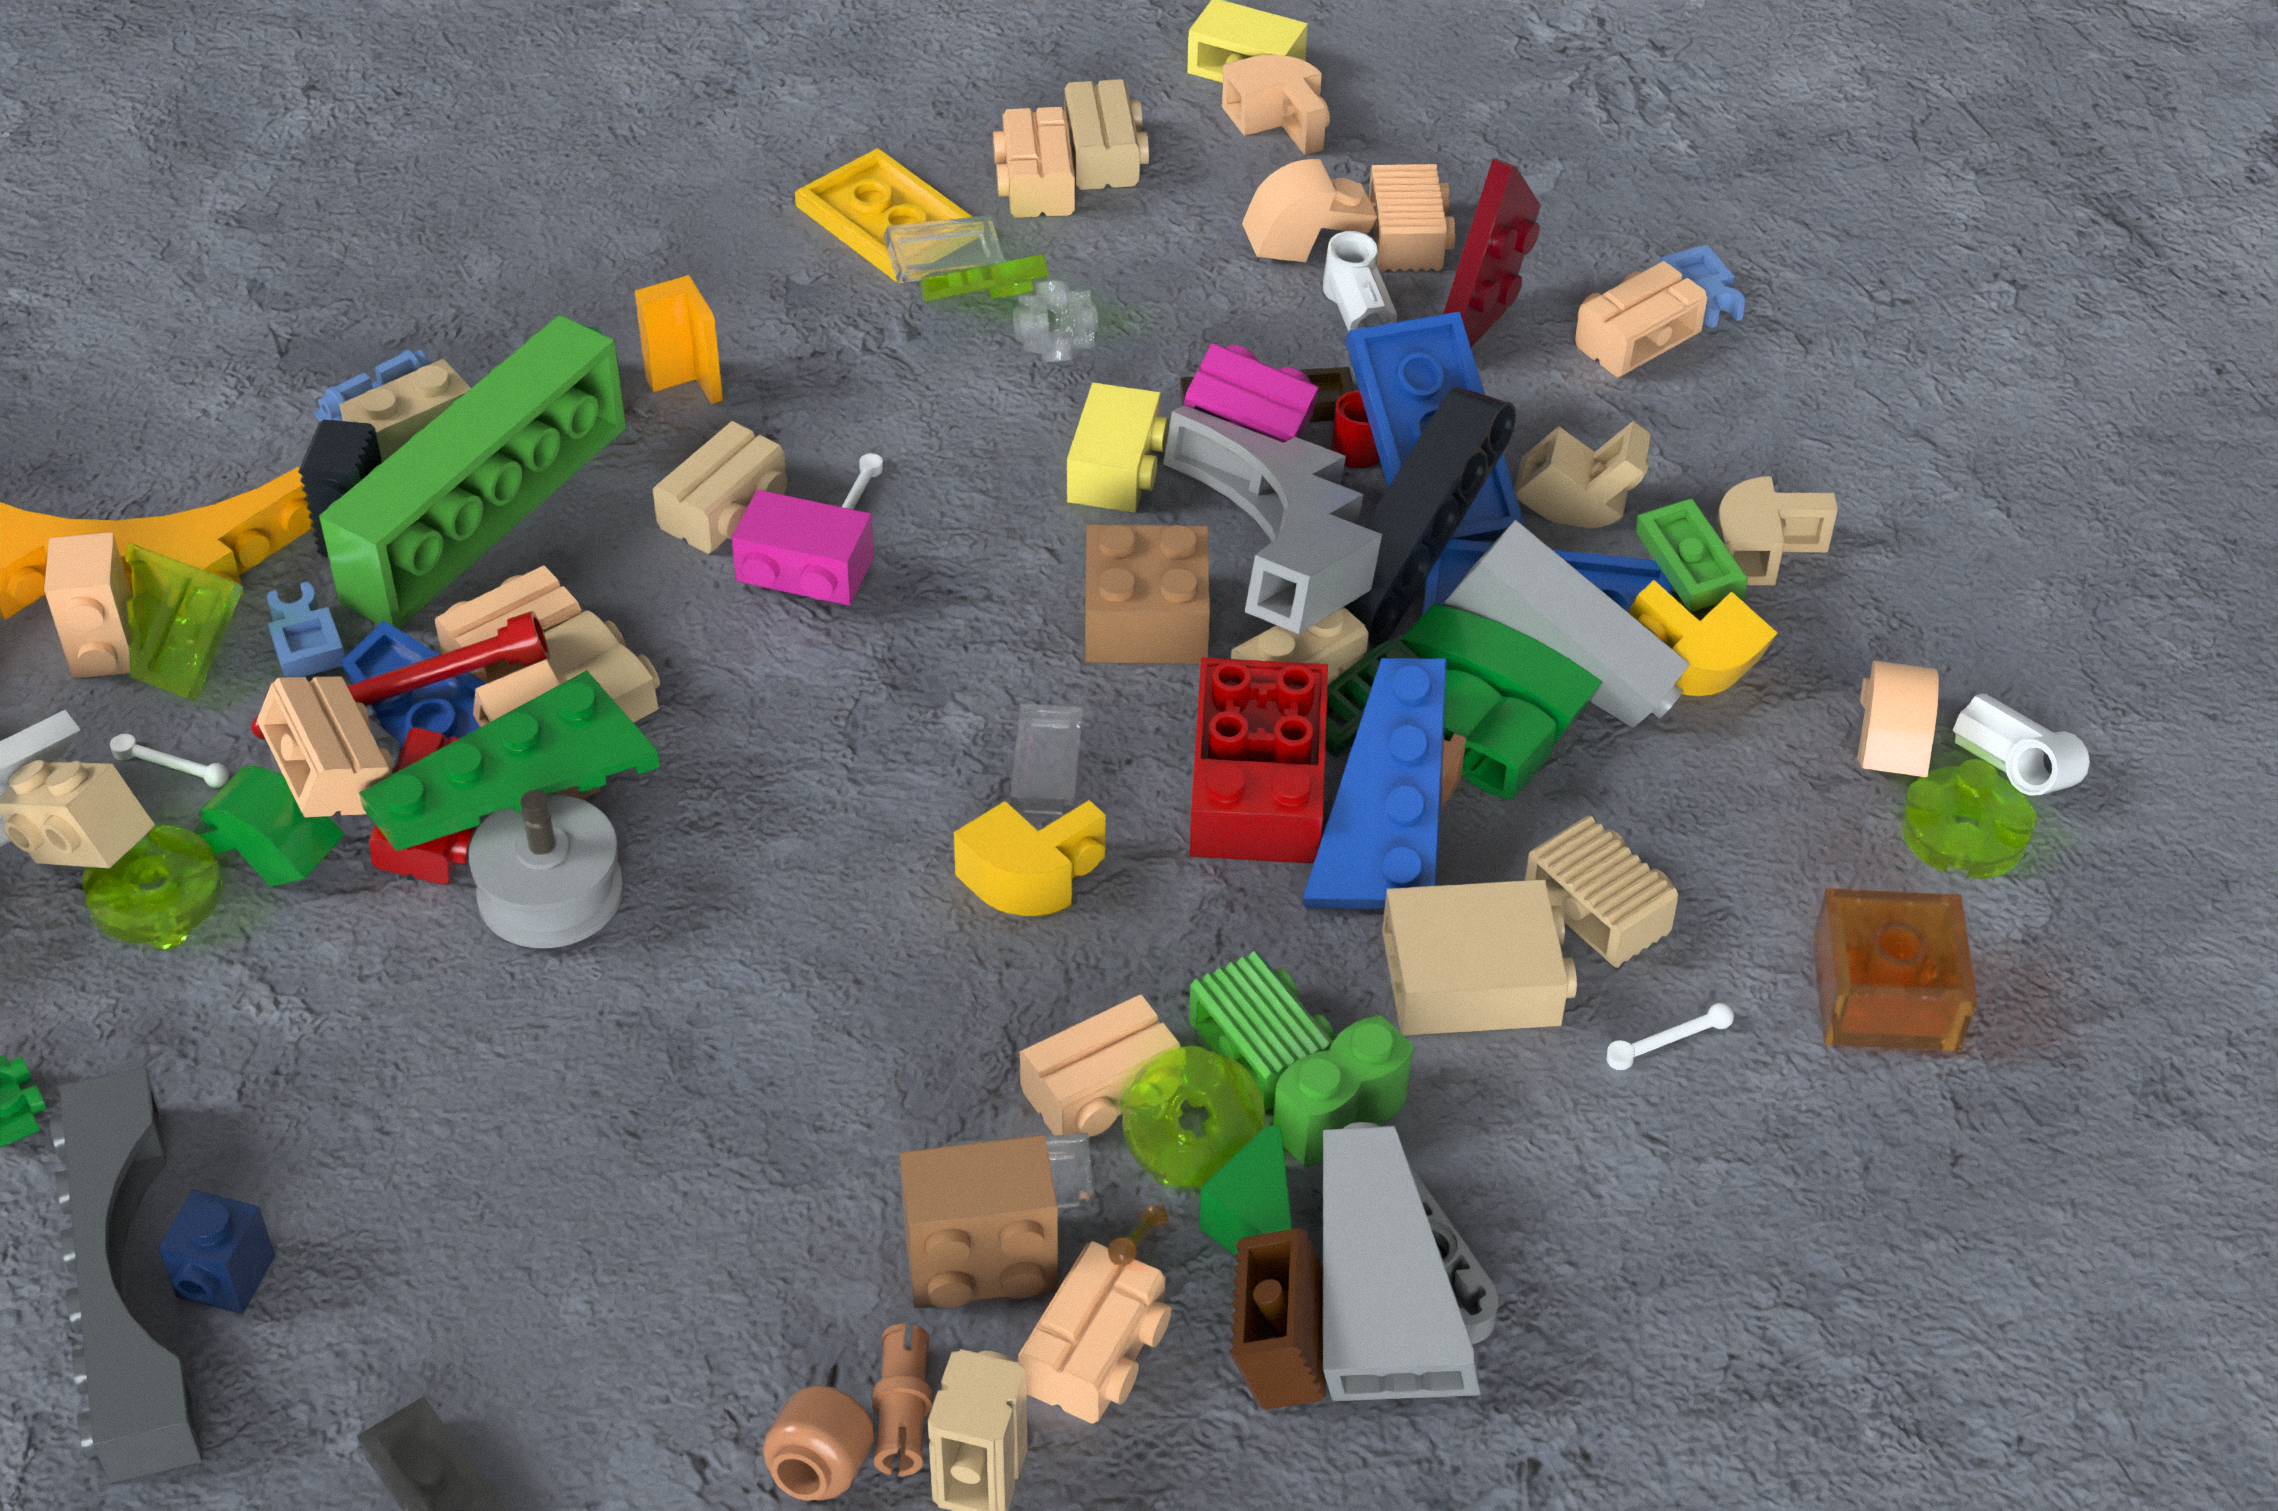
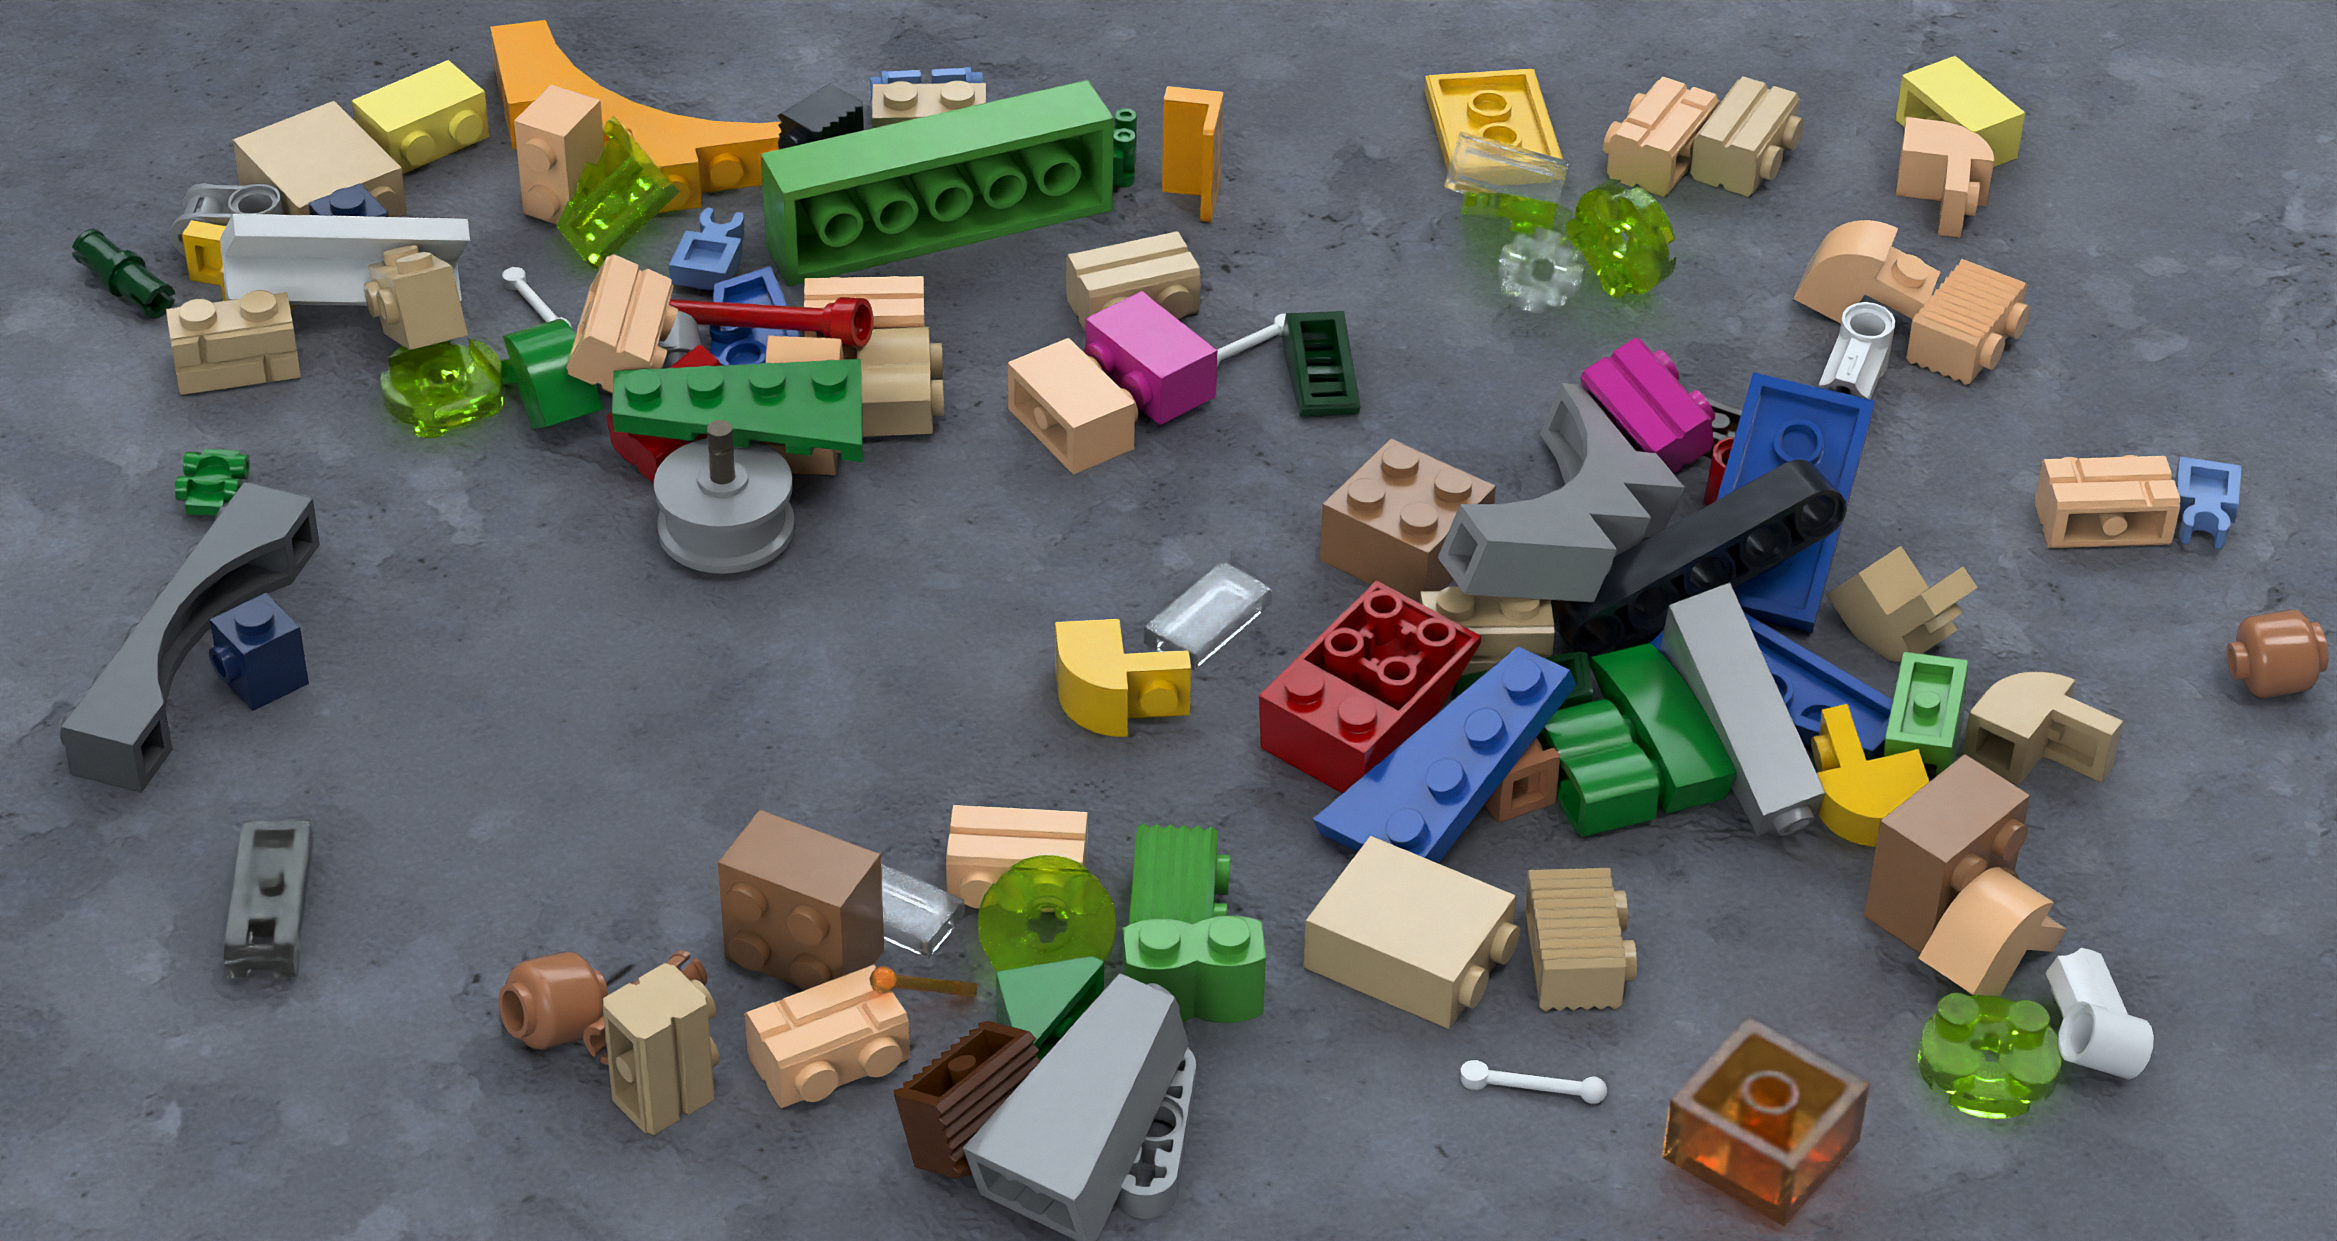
camera: 35 degrees right, 5 degrees down
(767, 624) = (1072, 405): none -> light nougat brick
(926, 452) = (1320, 331): none -> dark green slope
(1113, 236) = (1619, 264): none -> clear neon green plate
(1116, 447) = (1496, 396): light yellow brick -> none
(1494, 250) = (1974, 383): dark red wing -> none
(1823, 671) = (1939, 844): none -> medium nougat brick
(1871, 383) = (2278, 653): none -> nougat head

